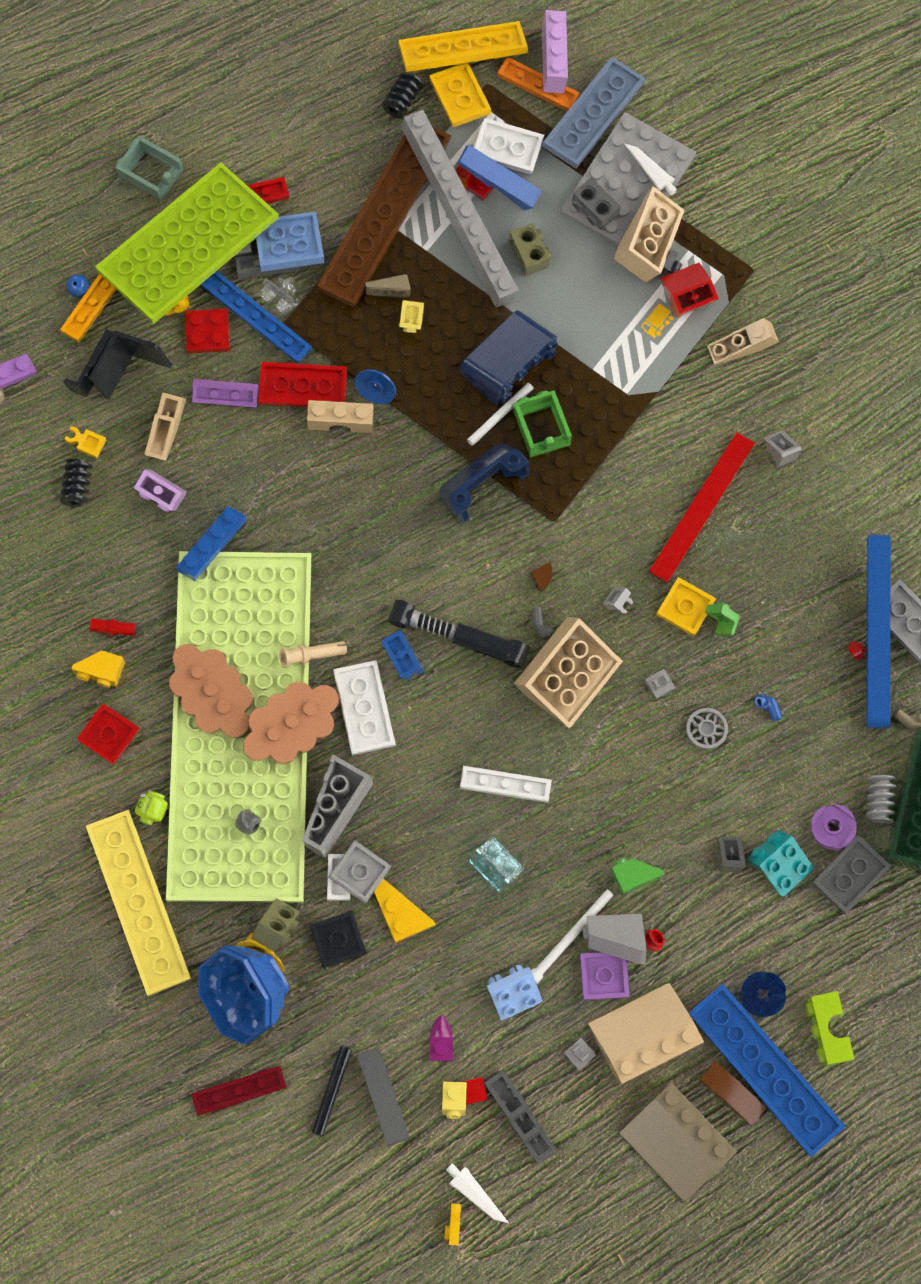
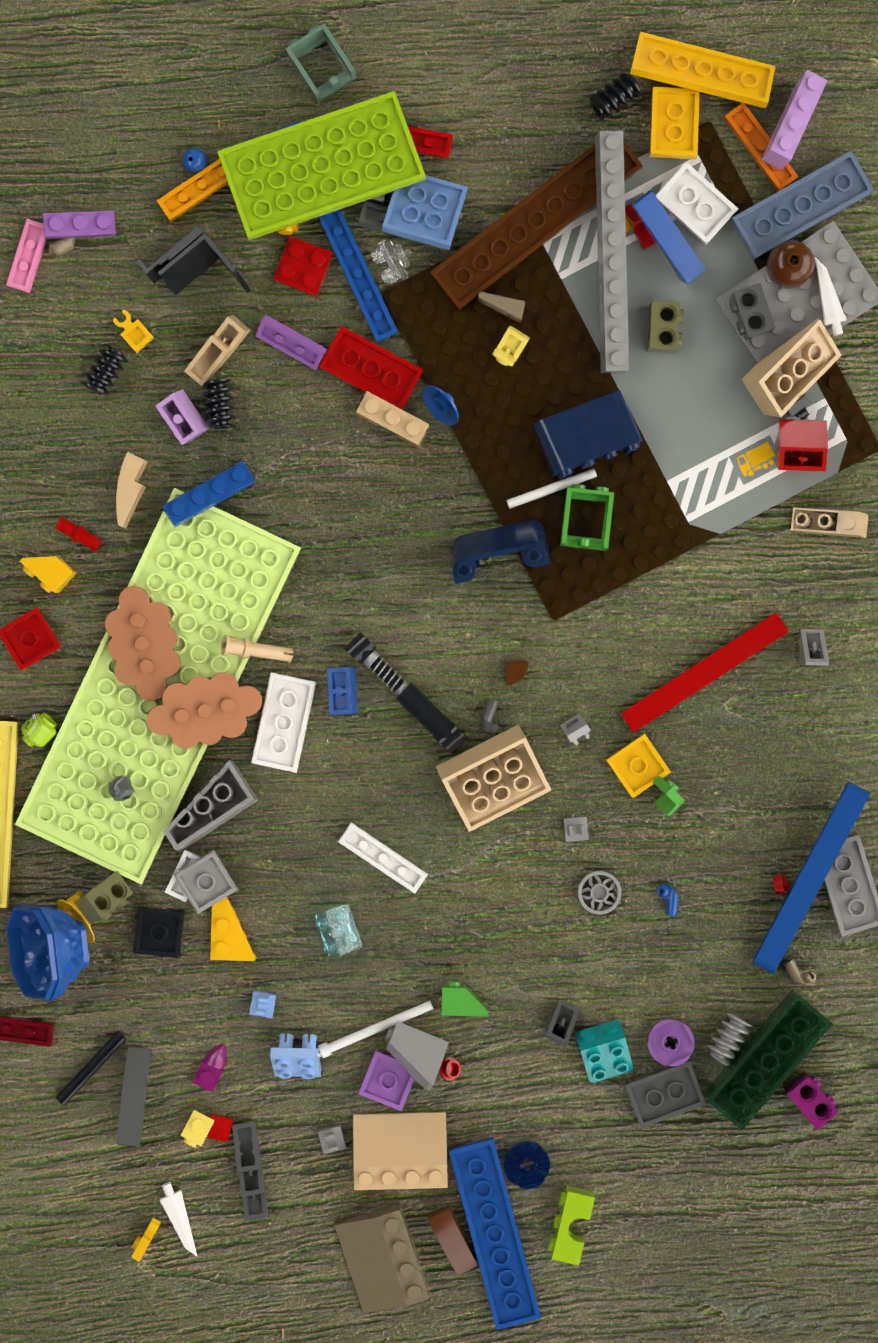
camera: 35 degrees right, 15 degrees up
(140, 568) = (128, 489): none -> tan slope
(185, 467) = (218, 404): none -> black piece
(460, 961) = (263, 1004): none -> light blue tile
(607, 156) = (786, 273): none -> reddish brown cylinder

